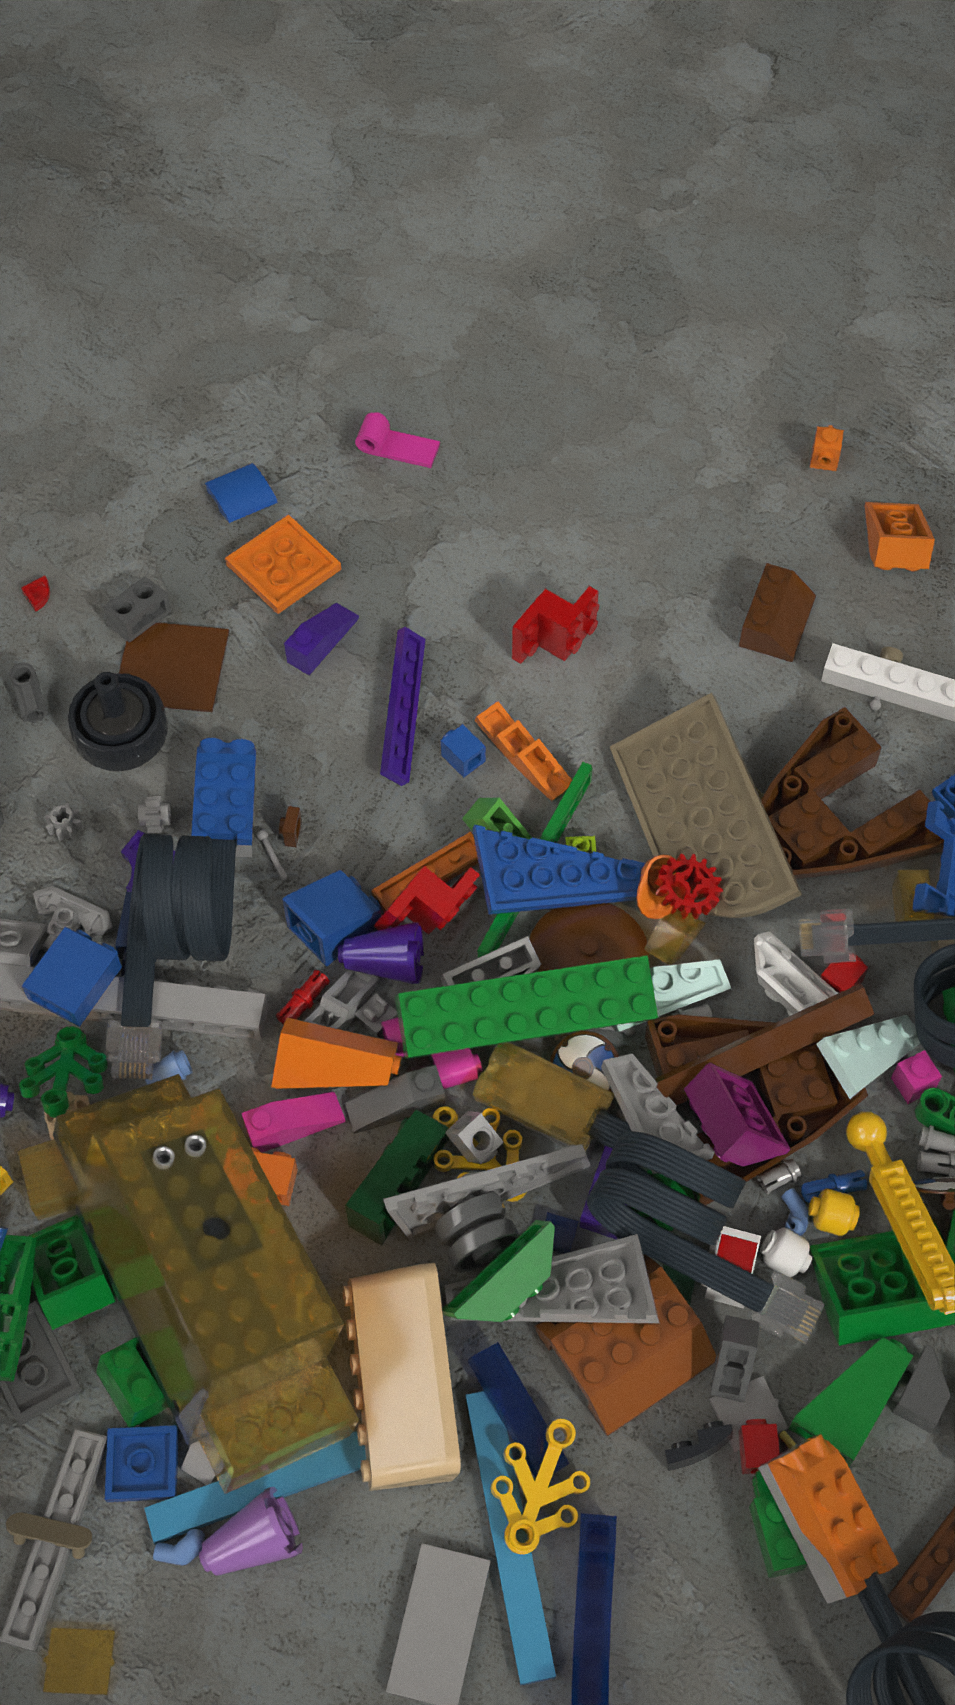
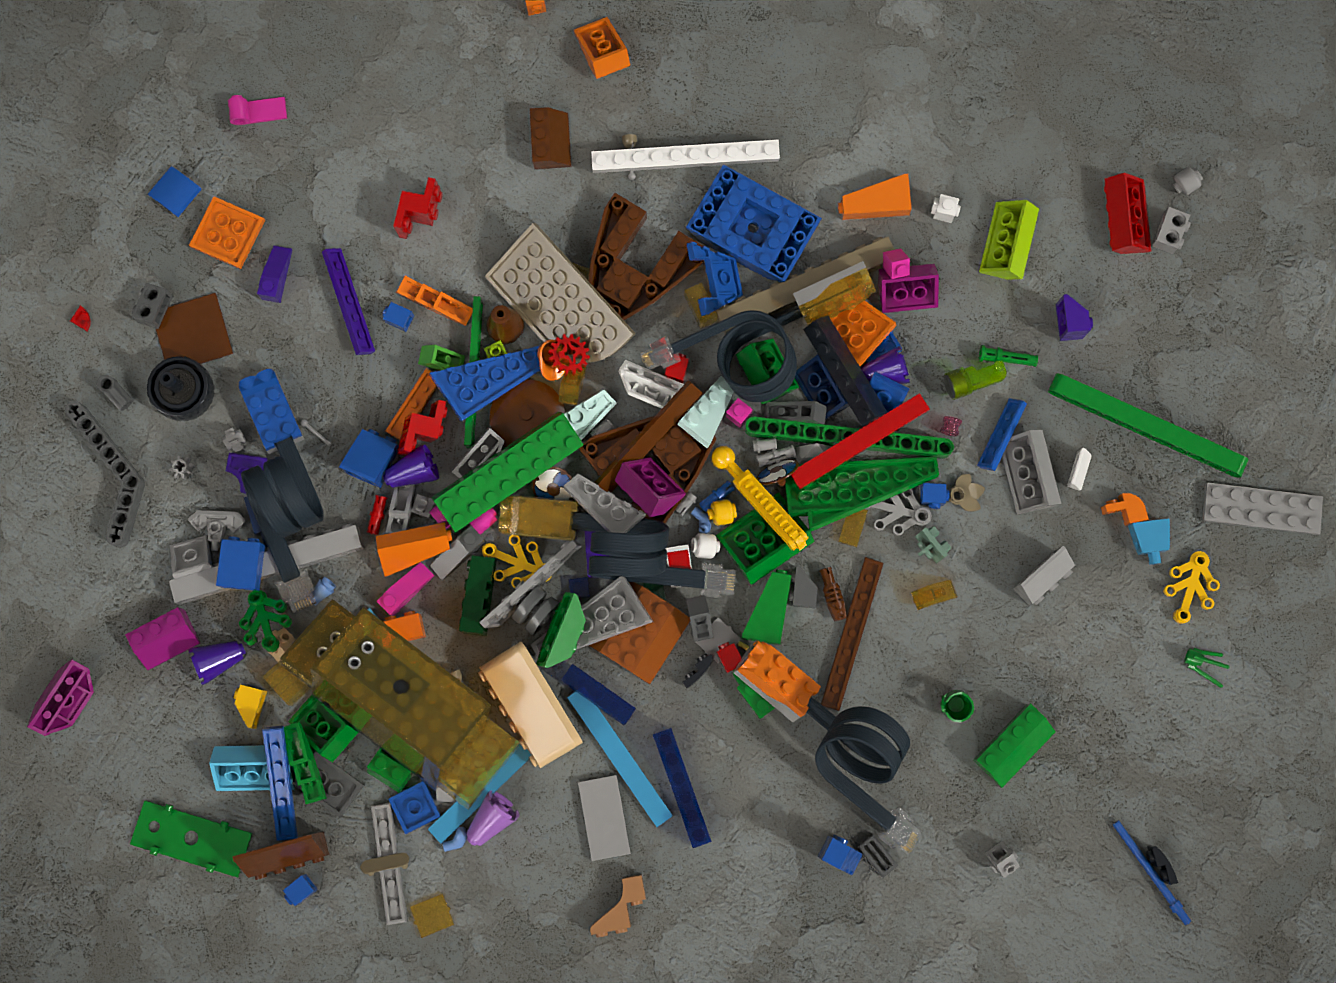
camera: 20 degrees left, 20 degrees up
(291, 826) = (318, 411): reddish brown plate -> none
(462, 1135) = (504, 558): light grey brick -> none
(537, 1491) = (626, 731): yellow plant -> none
(610, 814) = (504, 324): none -> reddish brown cone

